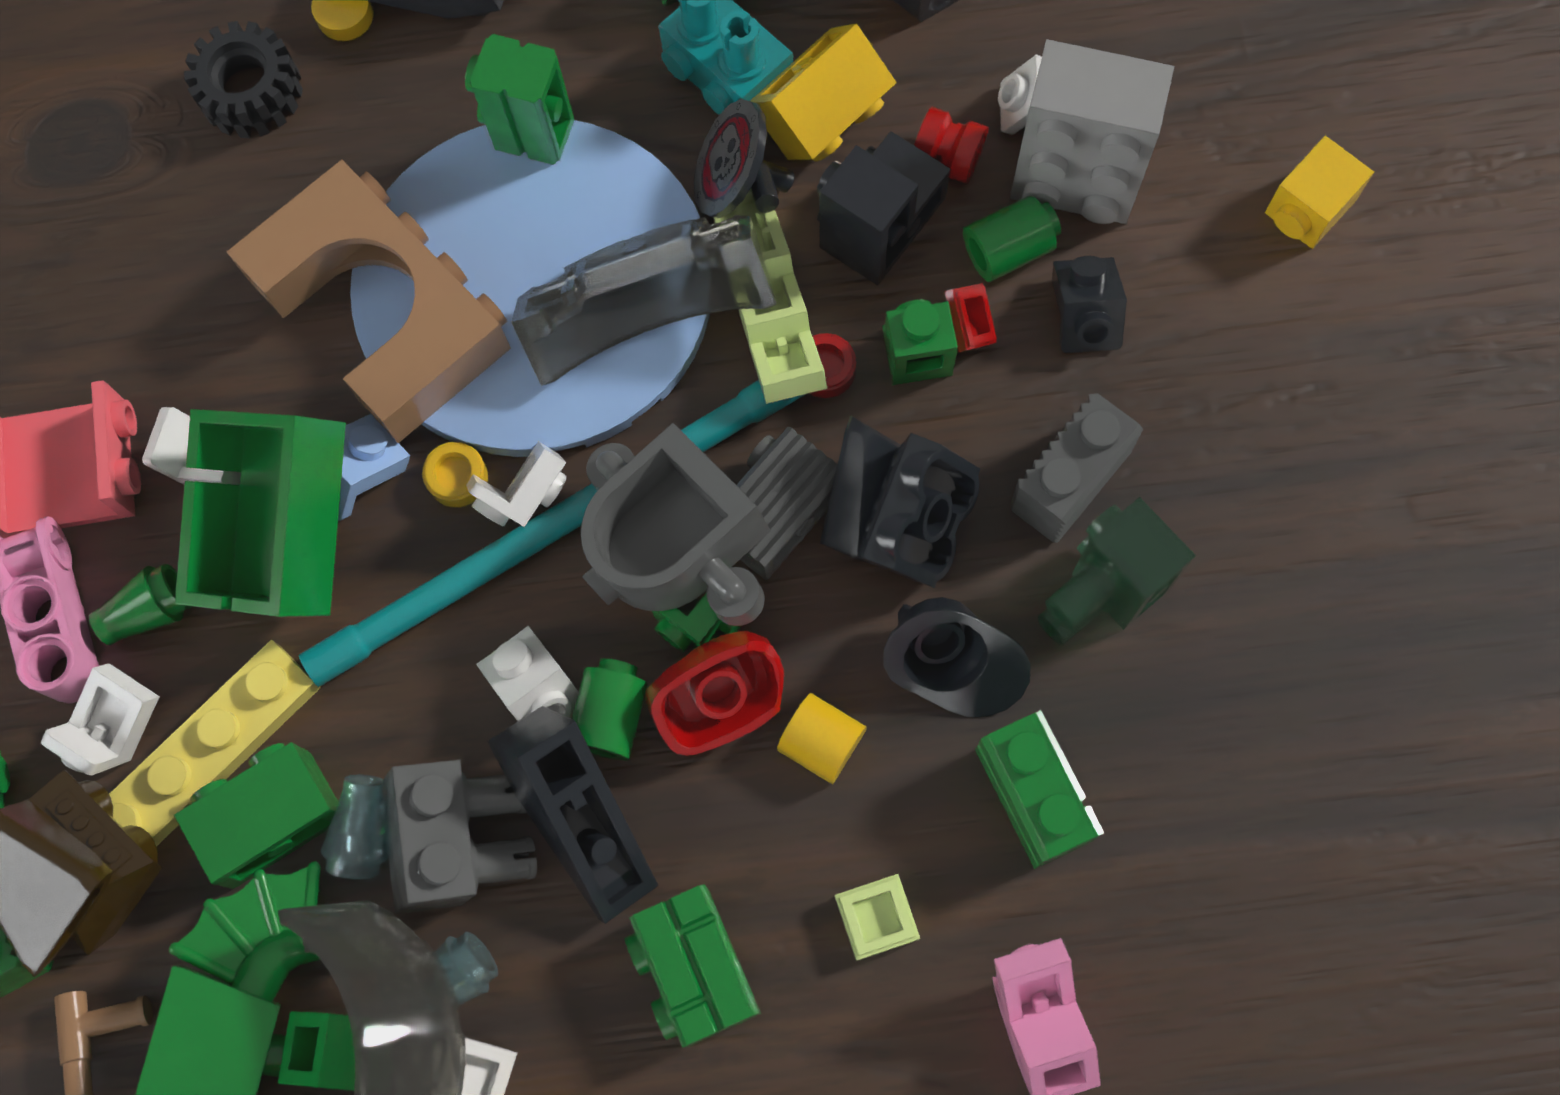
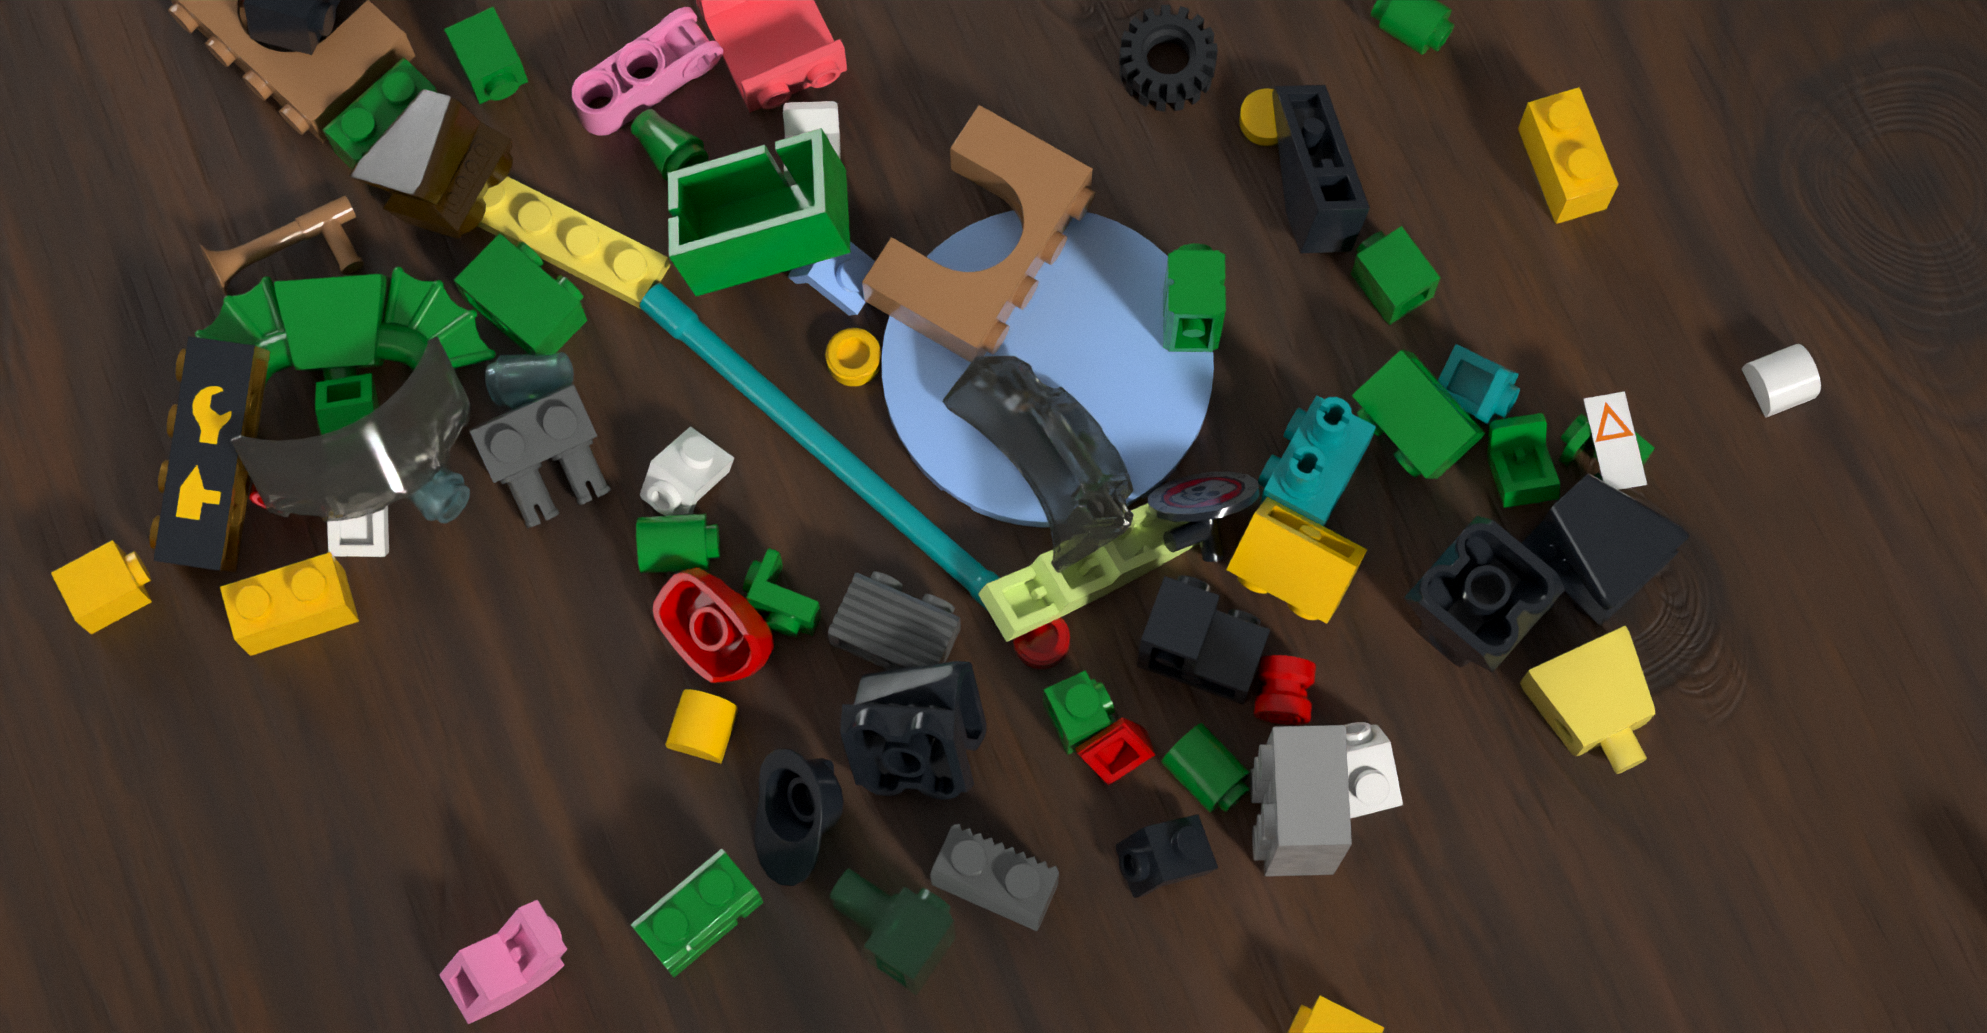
camera: 70 degrees right, 0 degrees up
(104, 722) = (563, 153): white bracket -> none
(534, 484) = (854, 423): white bracket -> none
(574, 809) = (581, 540): black slope -> none
(670, 530) = (832, 542): dark grey piece -> none
(692, 967) = (483, 672): green brick -> none
(877, 917) = (563, 812): yellowish green tile -> none

